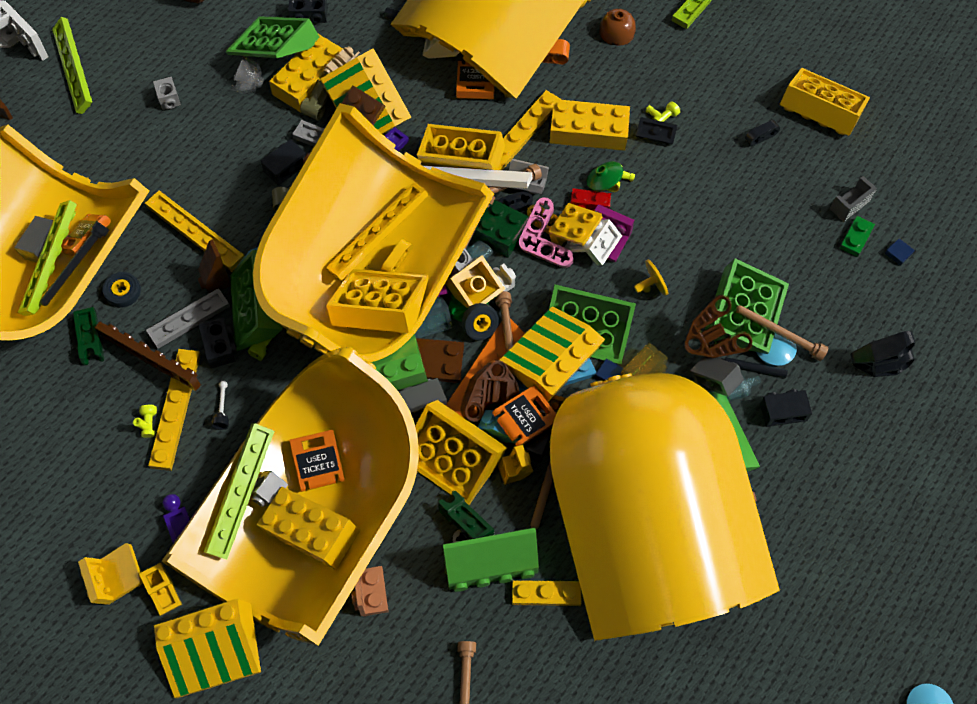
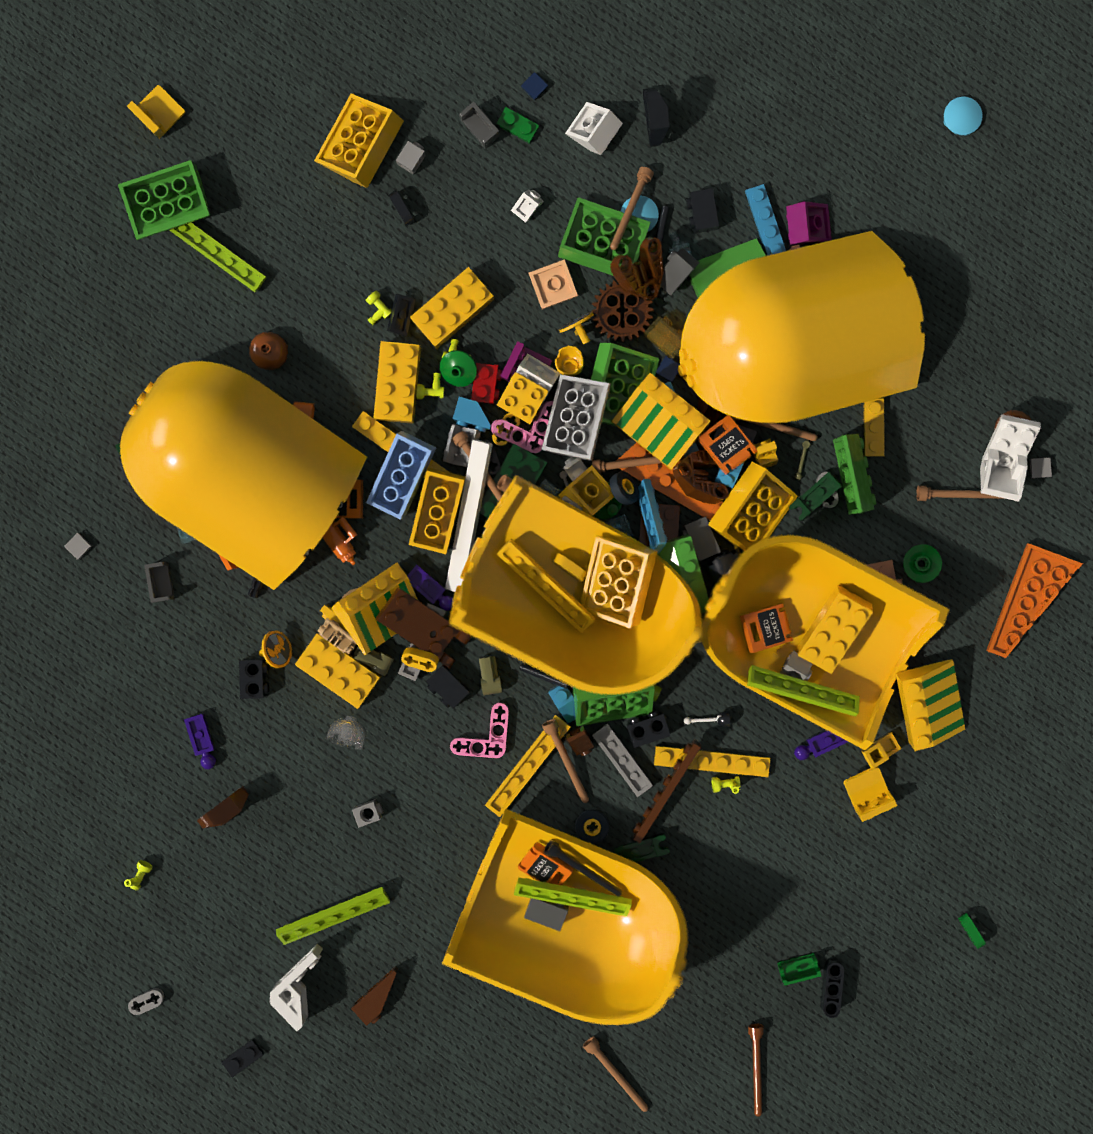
camera: 90 degrees left, 25 degrees up
(225, 201) = (493, 738): none -> bright pink beam
(229, 247) = (551, 727): none -> medium nougat piece
(275, 37) = (313, 709): bright green slope -> none
(312, 133) = (420, 659): none -> yellow beam
(333, 23) = (276, 649): none -> shield
(381, 633) = (931, 567): none -> green dish
(436, 75) = (339, 543): none -> orange piece
(442, 340) = (651, 516): none -> dark azure plate
(513, 119) = (401, 475): none -> light blue brick
(526, 516) = (806, 444): none -> olive hinge
(556, 267) = (576, 417): none -> light grey slope
(559, 185) = (470, 413): none -> dark azure slope
(581, 146) = (436, 390): none -> neon yellow piece
(614, 275) = (569, 361): none -> yellow hair
(665, 172) = (452, 308): none -> yellow brick
(669, 326) = (605, 311): none -> reddish brown gear
(695, 263) = (553, 284): none -> light nougat plate
(776, 240) = (527, 205): none -> white bracket
(783, 520) = (808, 223): none -> magenta slope
(784, 474) = (765, 220): none -> dark azure plate
(813, 141) = (411, 157): none -> light grey brick
(862, 304) = (594, 127): none -> white slope

